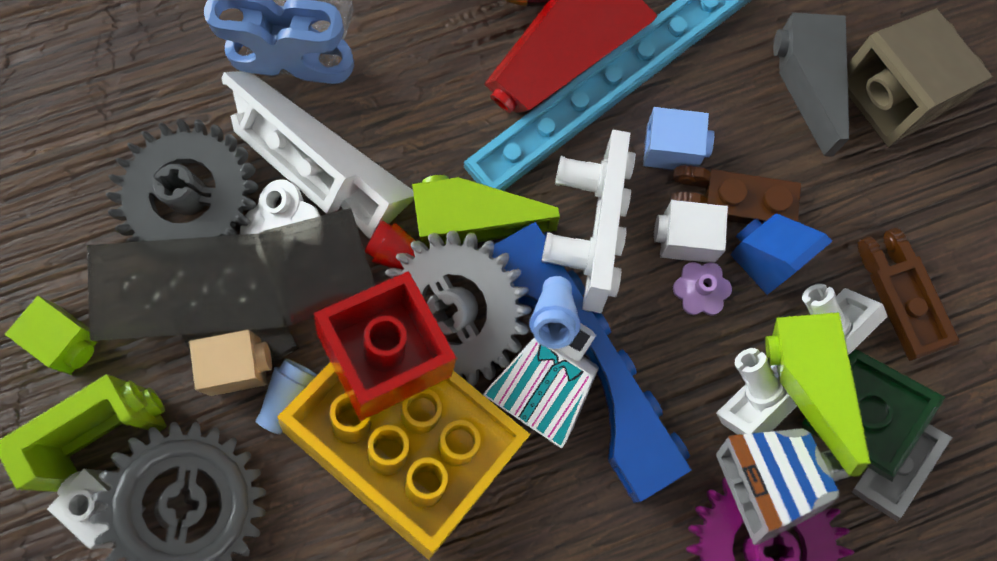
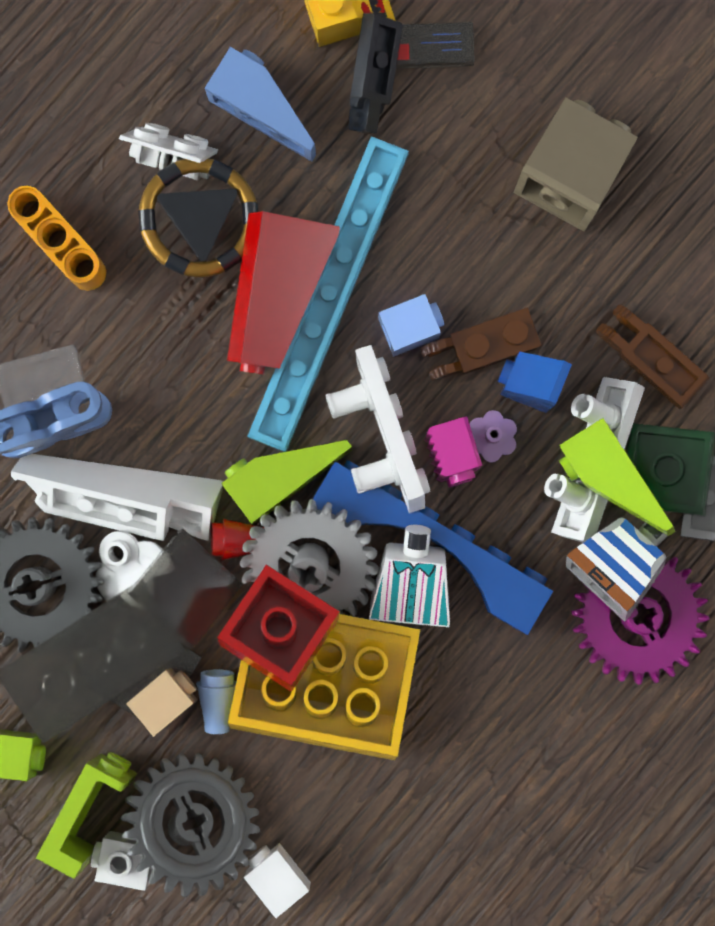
camera: 25 degrees left, 10 degrees up
(555, 315) = (392, 534): light blue cone -> none
(659, 272) = (453, 451): none -> dark pink brick
(692, 231) = (460, 396): white brick -> none
(815, 72) = (493, 202): dark grey slope -> none

